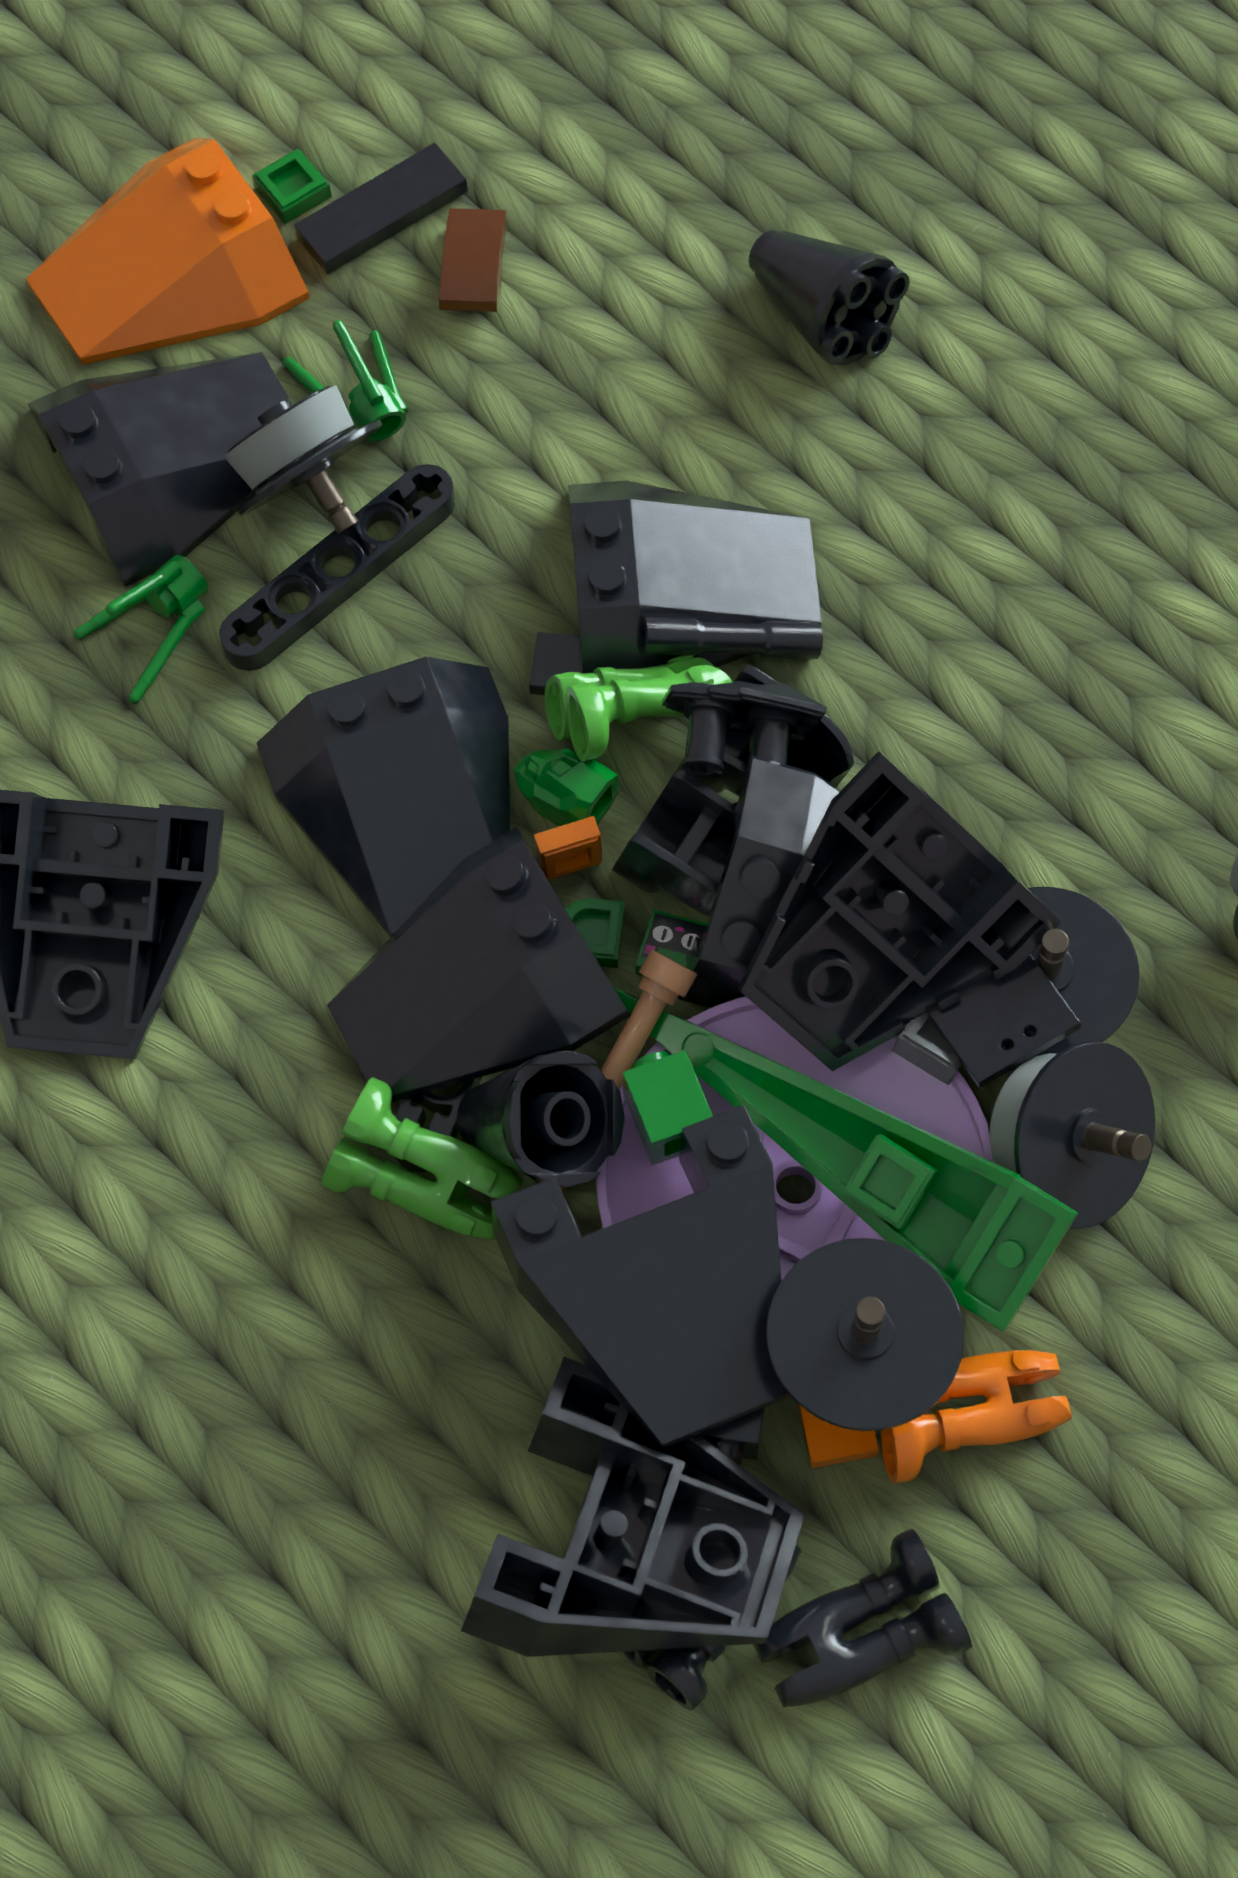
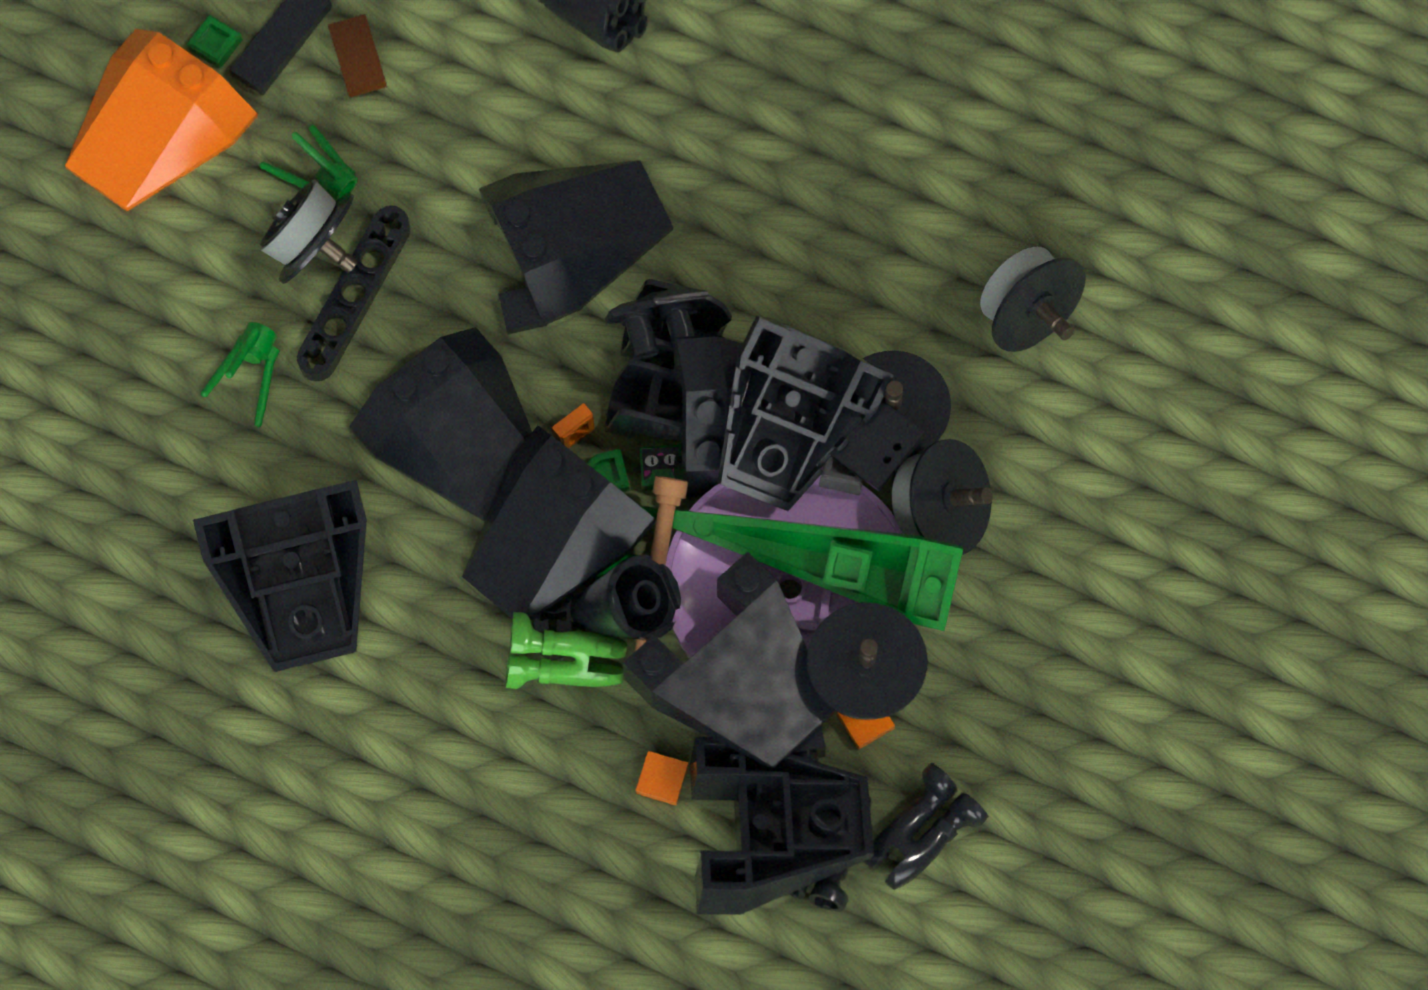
camera: 20 degrees left, 5 degrees up
(155, 449) = (207, 252): black wedge -> none
(498, 1403) = (662, 778): none -> orange tile
(566, 787) = (555, 388): green rock -> none
(586, 703) = (553, 331): bright green piece -> none
(663, 1100) = (697, 565): green brick -> none
(692, 637) = (600, 266): black piece -> none
(980, 1424) = (949, 688): orange piece -> none

